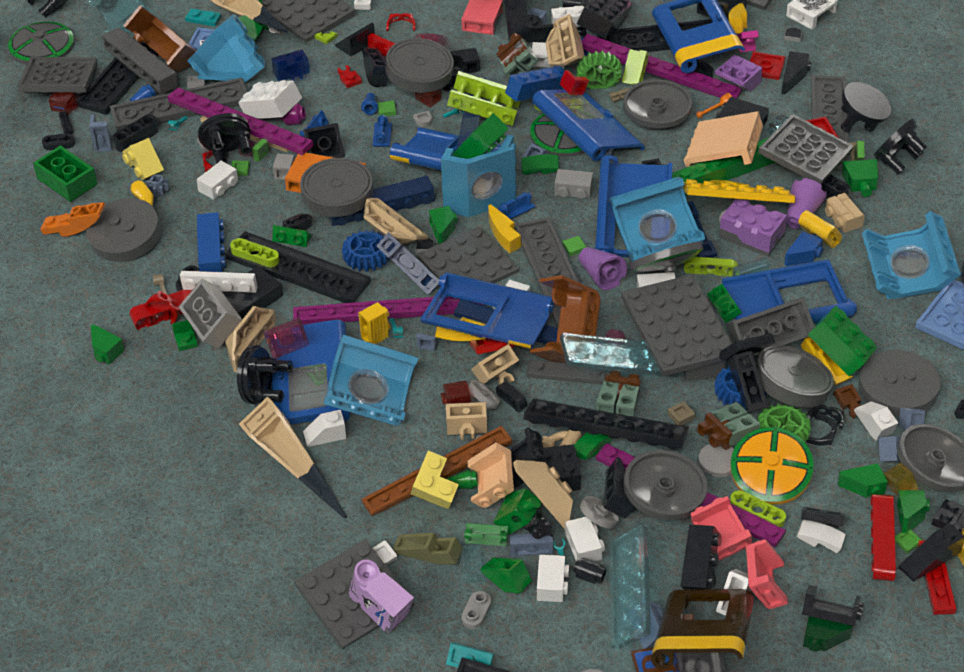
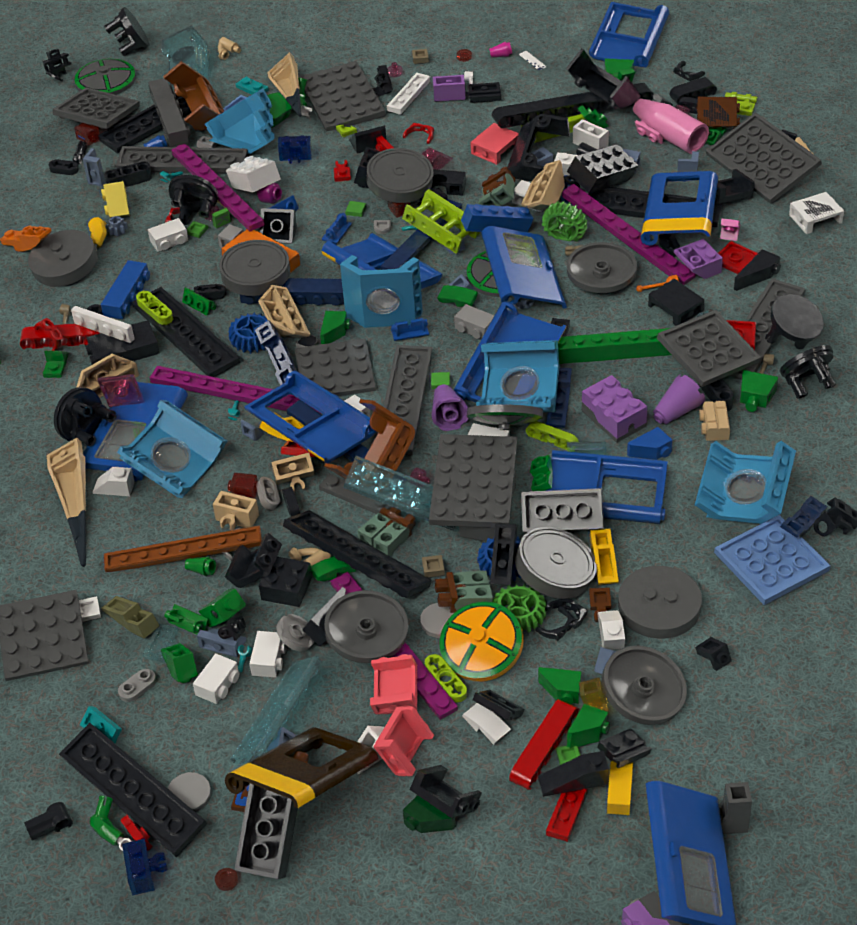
camera: 25 degrees right, 0 degrees up
(65, 173) = (47, 195): green brick -> none
(210, 313) = (76, 349): light grey brick -> none
(369, 105) = (342, 200): blue cone -> none
(374, 323) = (211, 401): yellow brick -> none
(379, 595) = (48, 642): lavender piece -> none
(430, 484) = (163, 556): light yellow brick -> none
(483, 138) = (388, 254): green brick -> none
(493, 475) = (228, 558): light nougat panel -> none
(503, 230) = (384, 347): yellow slope -> none
(547, 487) = (249, 592): tan wedge -> none
(573, 84) = (530, 229): red panel -> none
(589, 571) = (254, 684): black brick -> none
(635, 67) = (602, 227): lime panel -> none
(700, 557) = (353, 705): black brick -> none
(725, 138) = (639, 317): light nougat panel -> none
(737, 190) = (612, 368): yellow plate -> none
(738, 18) = (730, 205): yellow slope -> none
(752, 344) = (522, 520): black piece -> none
(793, 34) = (782, 234): black tile -> none
(815, 225) = (676, 429): yellow connector -> none
(842, 340) = (620, 542): green brick -> none
(859, 150) = (769, 364): bright green tile -> none
(910, 417) = (649, 638): sand blue slope -> none

